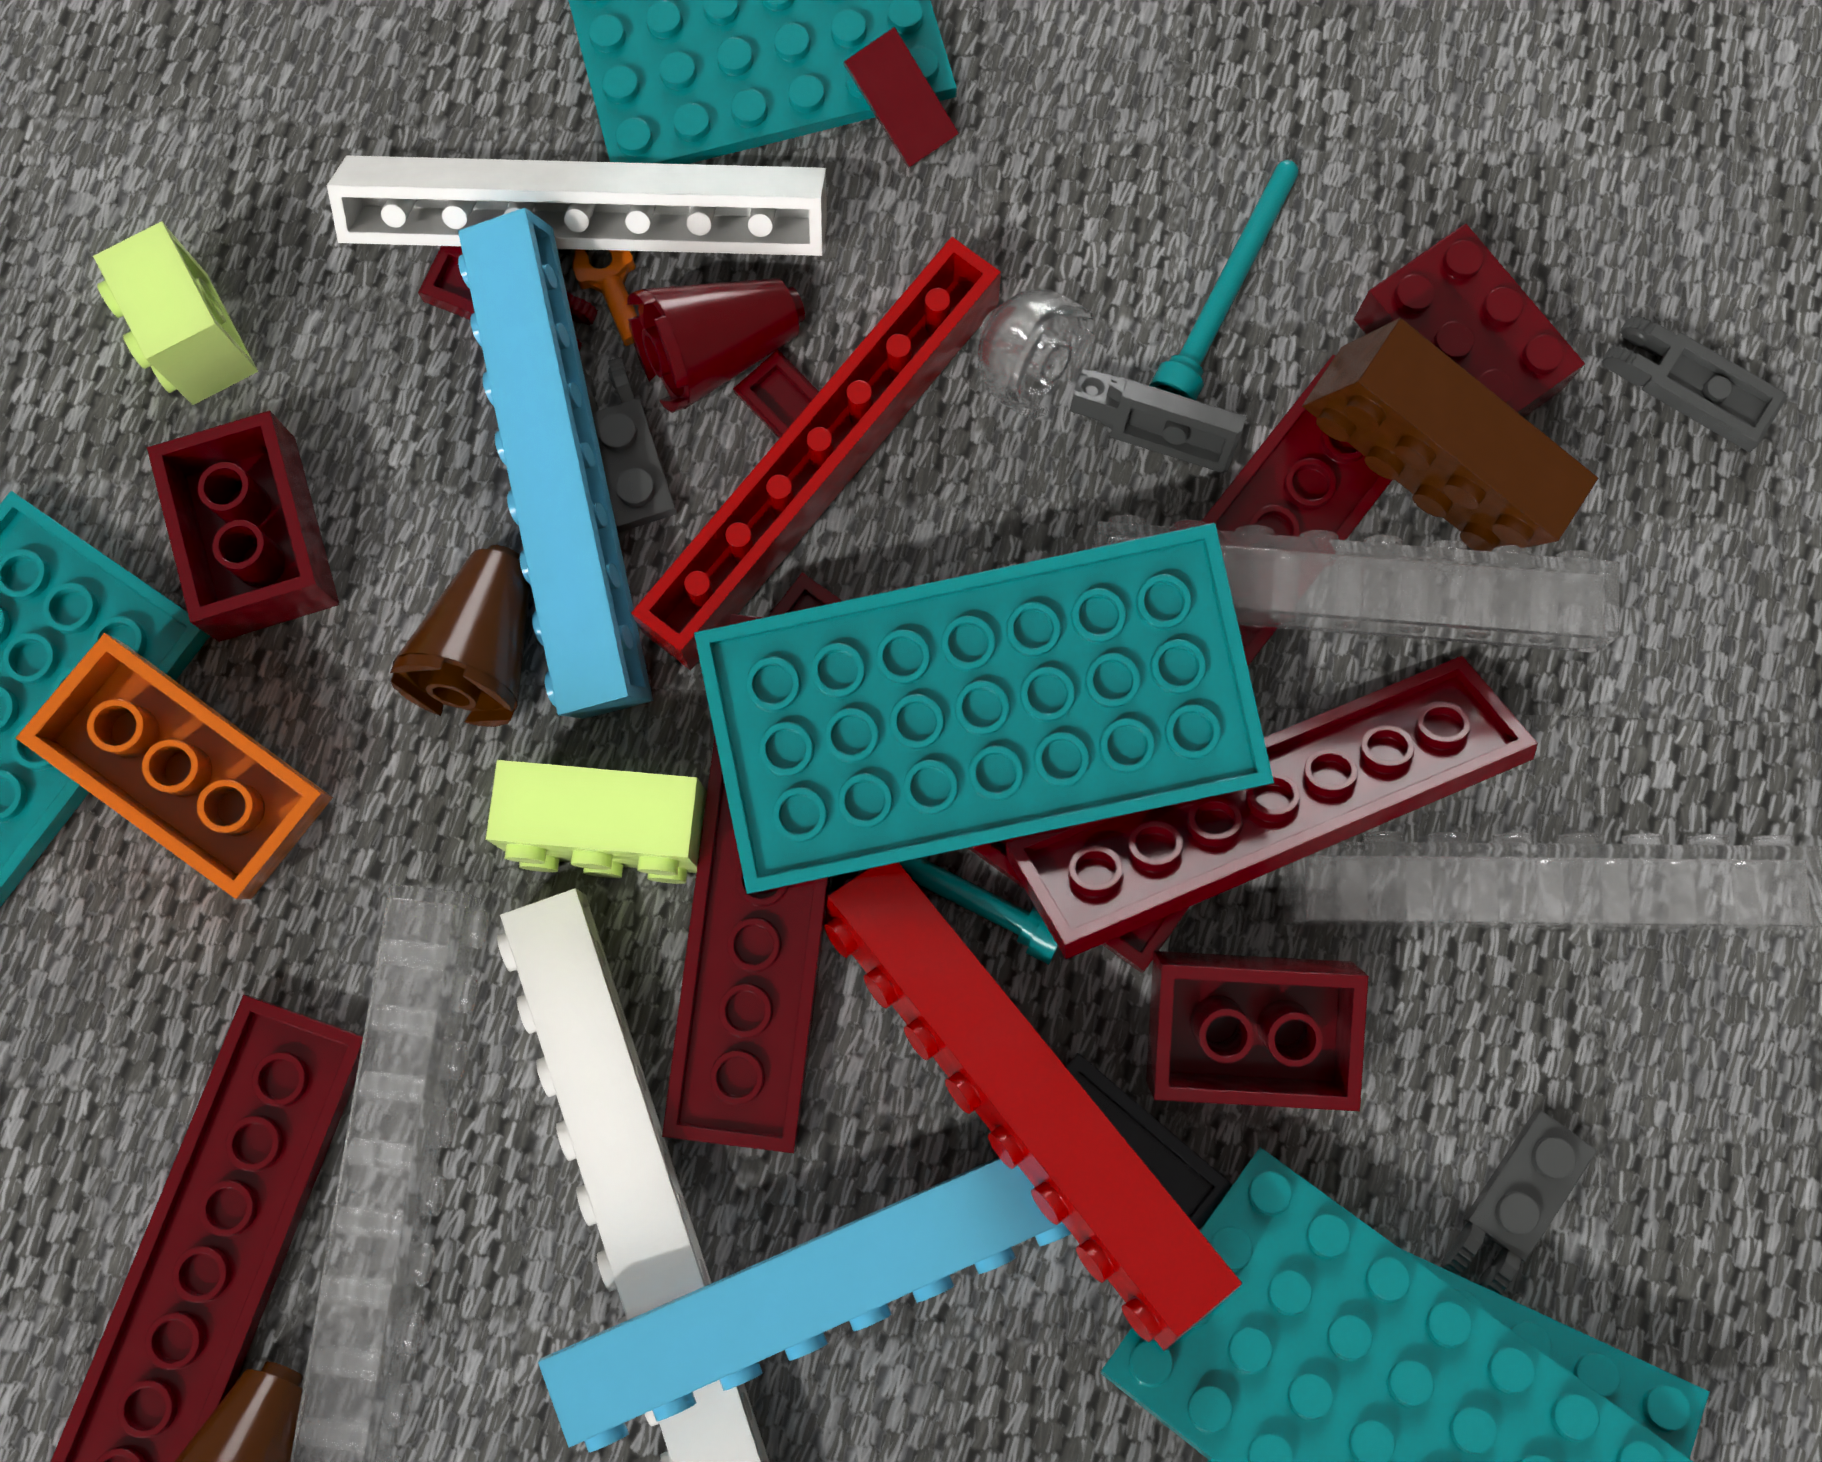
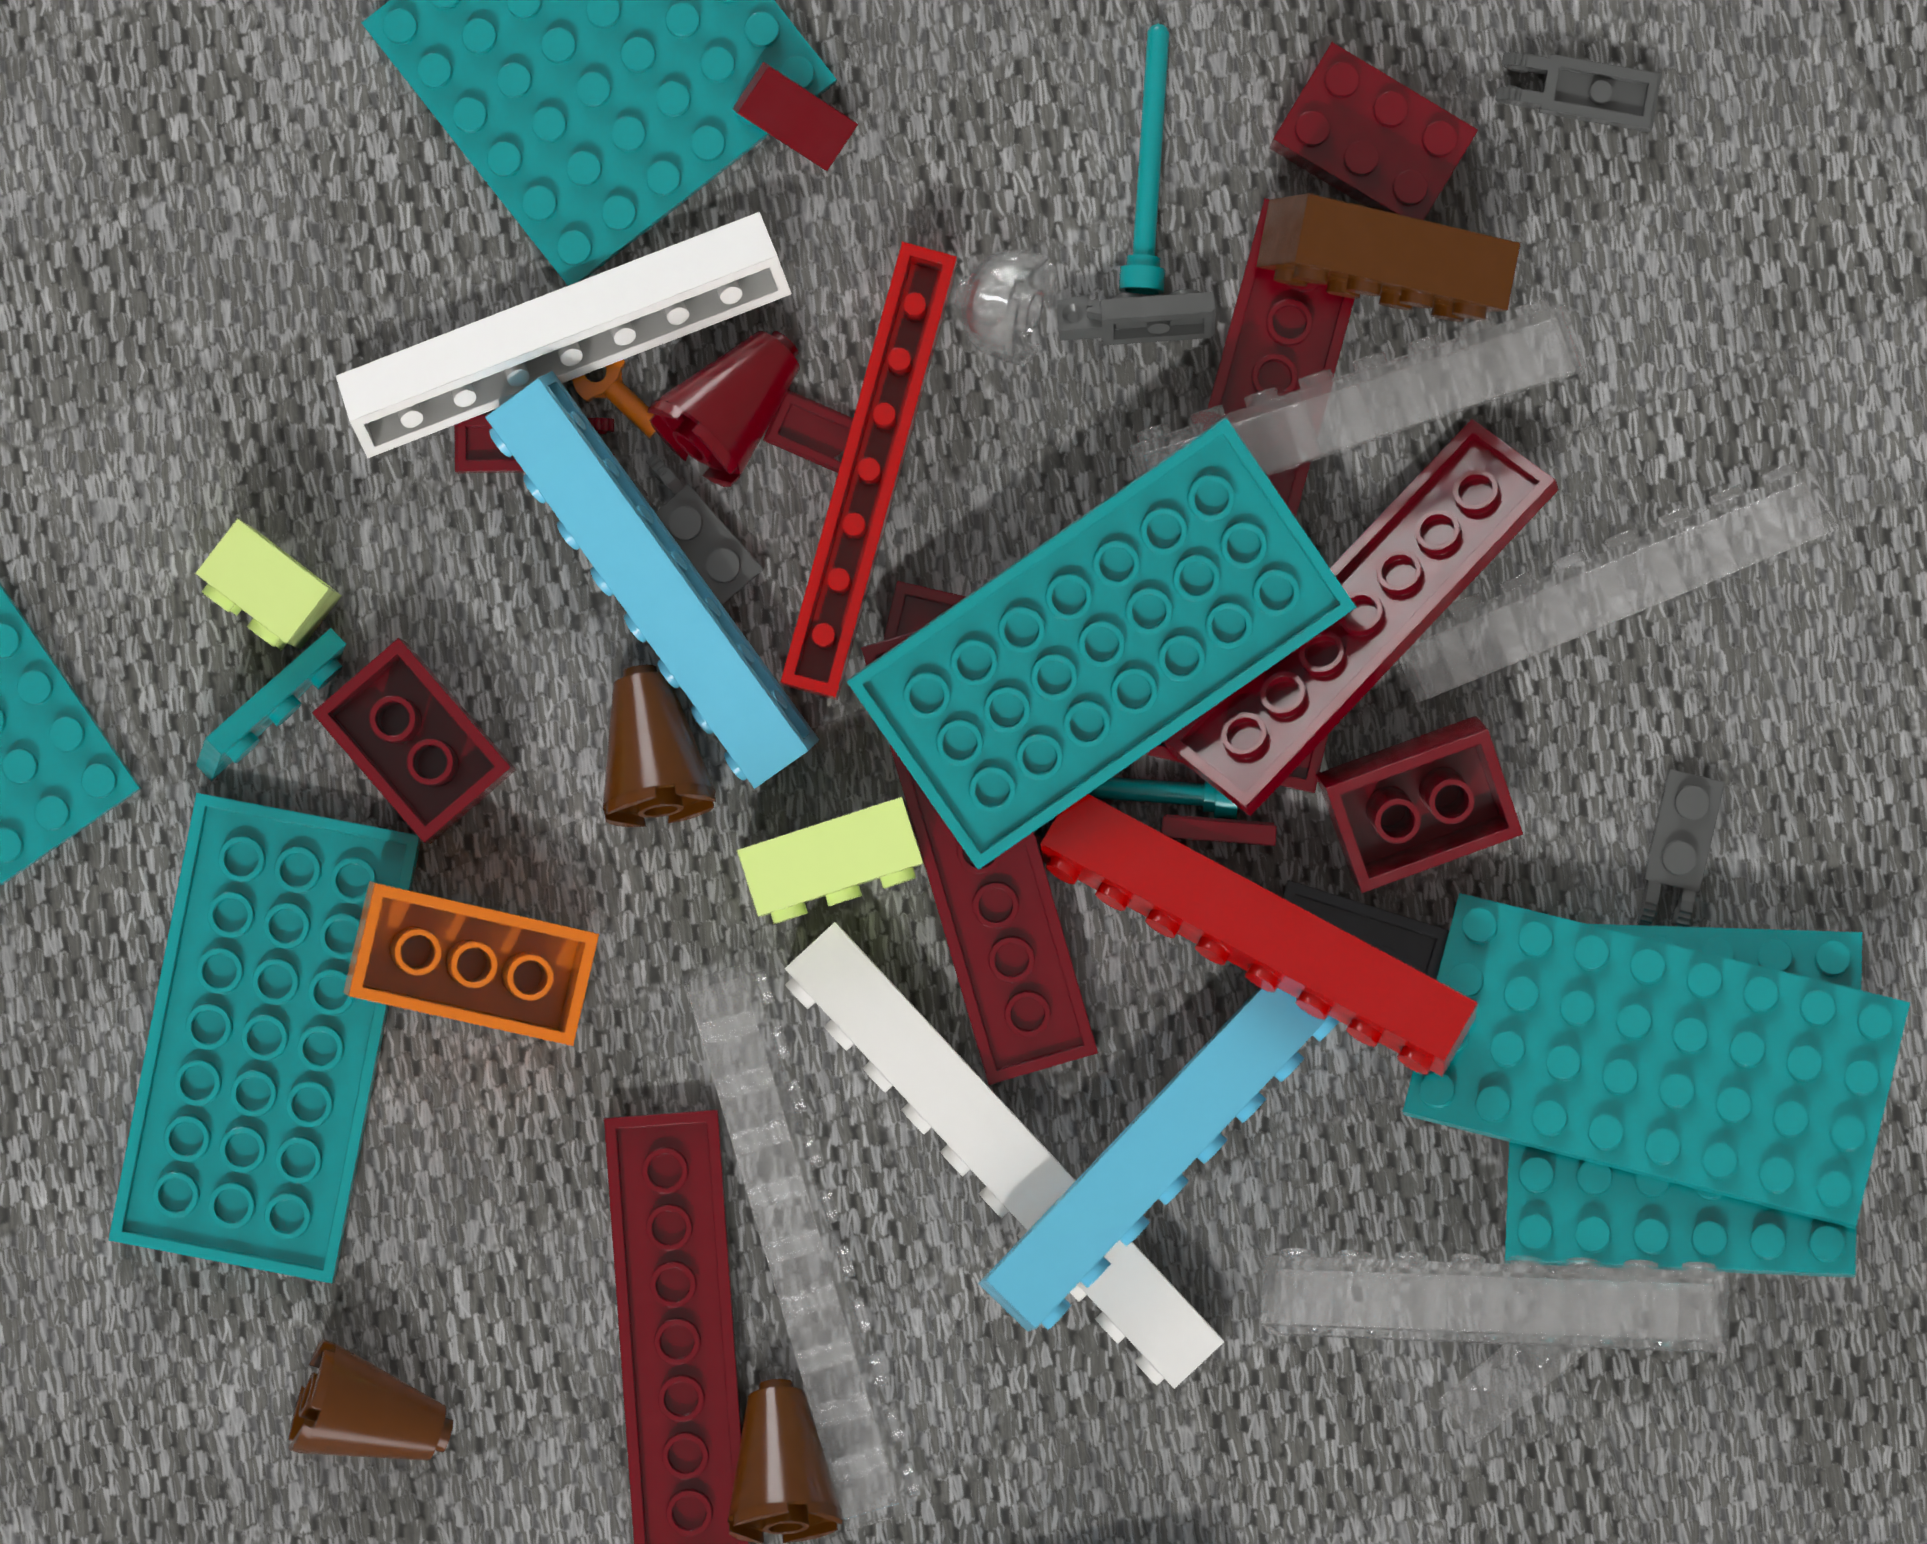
camera: 25 degrees left, 10 degrees up
(112, 434) = (271, 704): none -> teal wing
(1026, 967) = (1218, 830): none -> dark red tile

